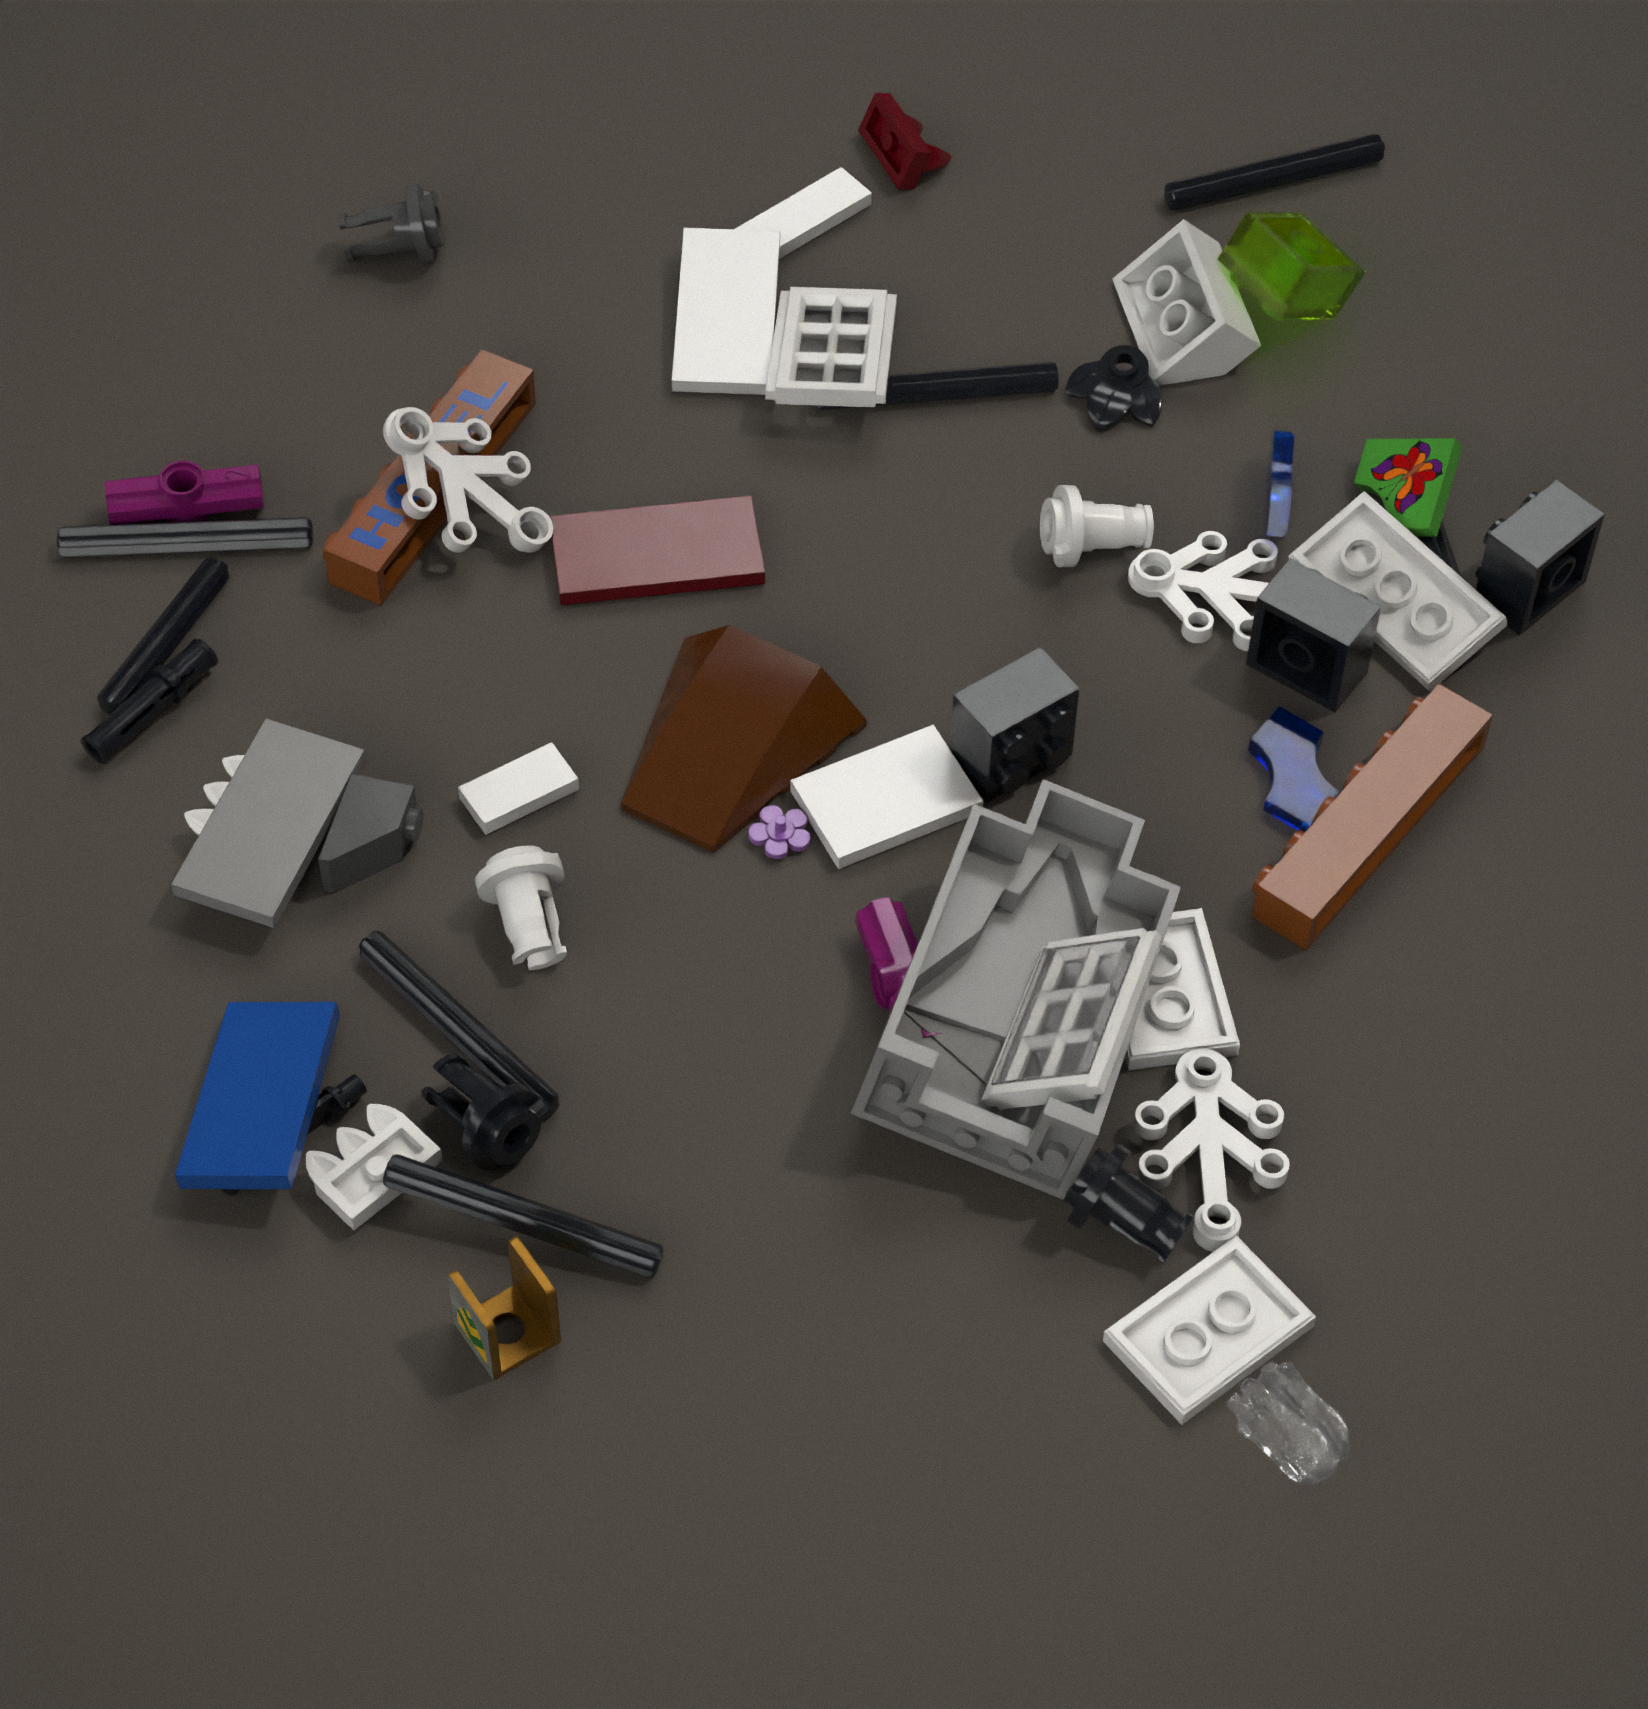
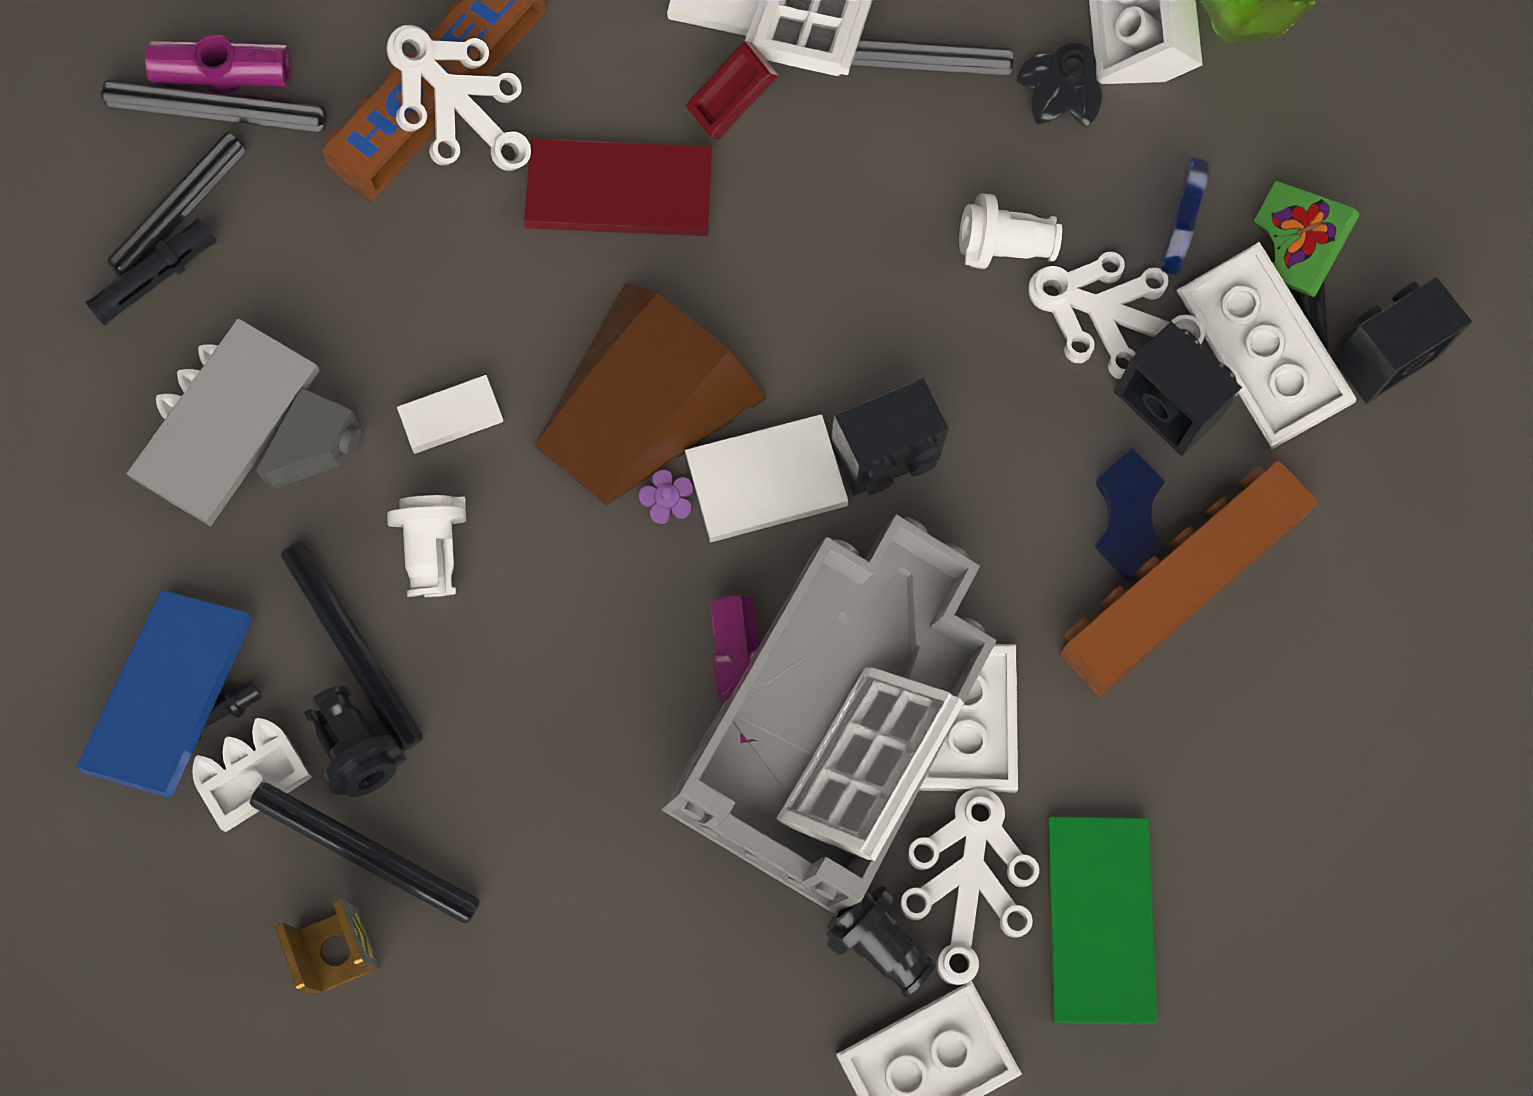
camera: 10 degrees right, 20 degrees up
(761, 437) = (731, 90): none -> dark red tile
(1364, 1158) = (1101, 921): none -> green tile

